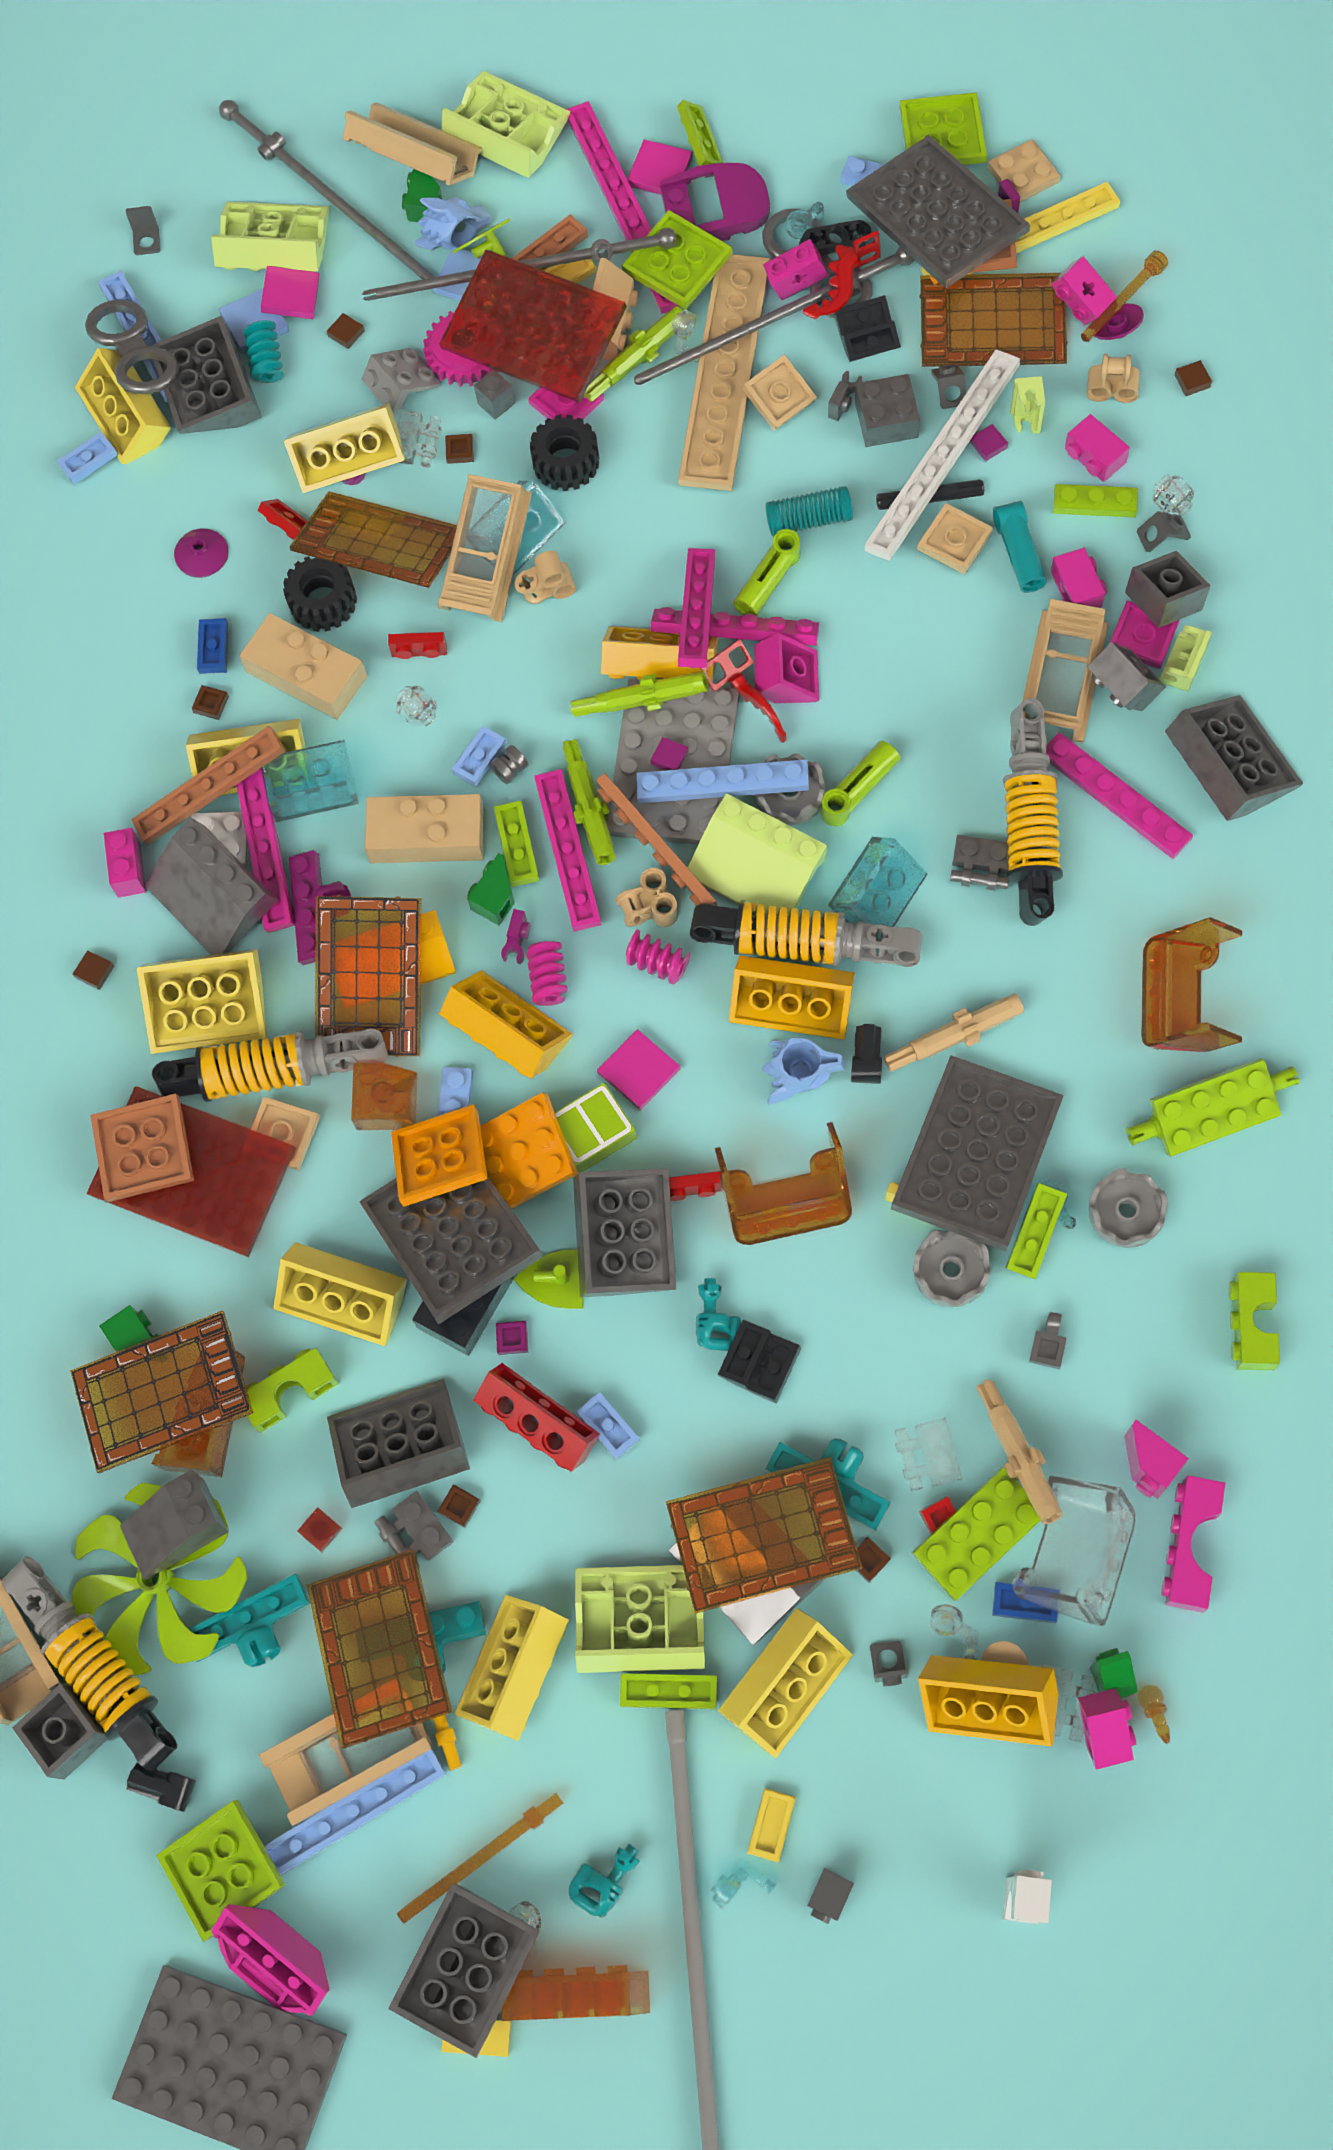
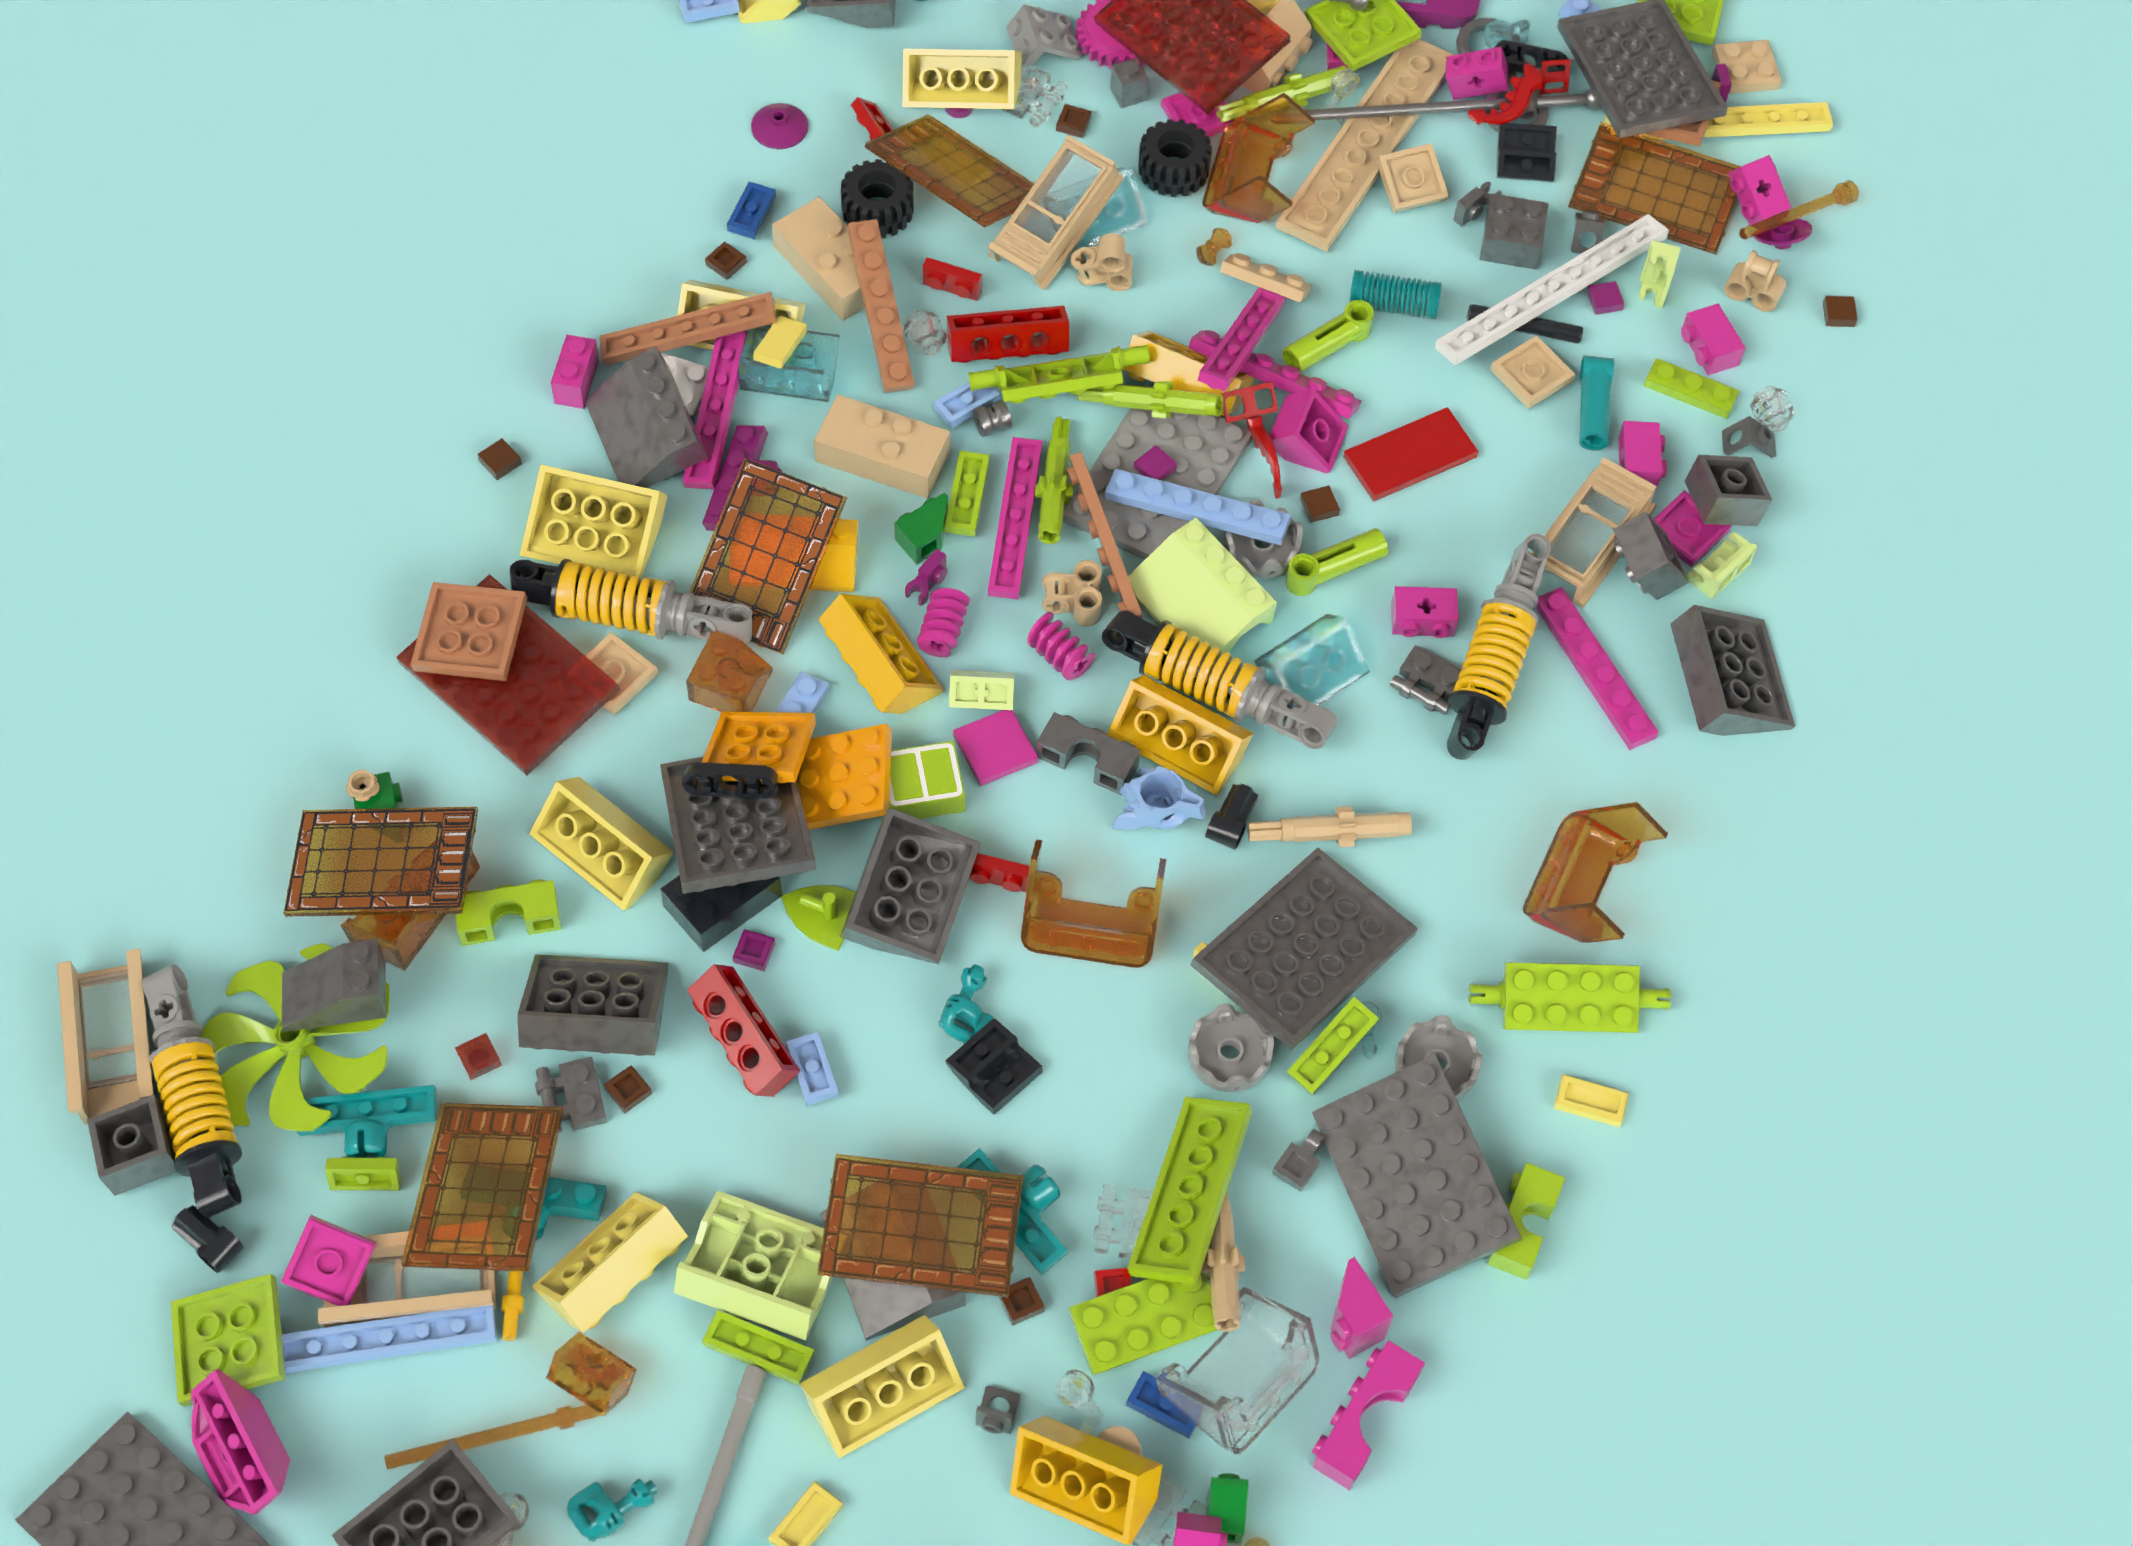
camera: 10 degrees right, 10 degrees down
(113, 1321) = (361, 778): none -> tan plate
(269, 1675) = (363, 1174): none -> lime plate
(277, 1769) = (328, 1261): none -> dark pink tile
(296, 768) = (780, 342): none -> light yellow tile
(368, 697) = (880, 306): none -> nougat plate
(457, 1192) = (741, 772): none -> black beam
(489, 679) = (994, 326): none -> red brick
(540, 1773) = (591, 1373): none -> clear orange brick
(553, 702) = (1060, 376): none -> lime plate
(606, 1023) = (981, 689): none -> yellowish green hinge
(626, 433) = (1245, 157): none -> clear orange windscreen
(635, 515) = (1219, 240): none -> clear orange piece
(690, 537) = (1266, 277): none -> tan plate
(698, 1038) = (1067, 738): none -> flat silver arch
(822, 734) = (1319, 504): none -> reddish brown tile
(881, 656) = (1410, 454): none -> red tile
(953, 801) = (1424, 611): none -> dark pink brick
(971, 1410) = (1190, 1190): none -> lime plate
(1151, 1320) = (1416, 1176): none -> flat silver plate
(1265, 1191) = (1591, 1100): none -> light yellow tile

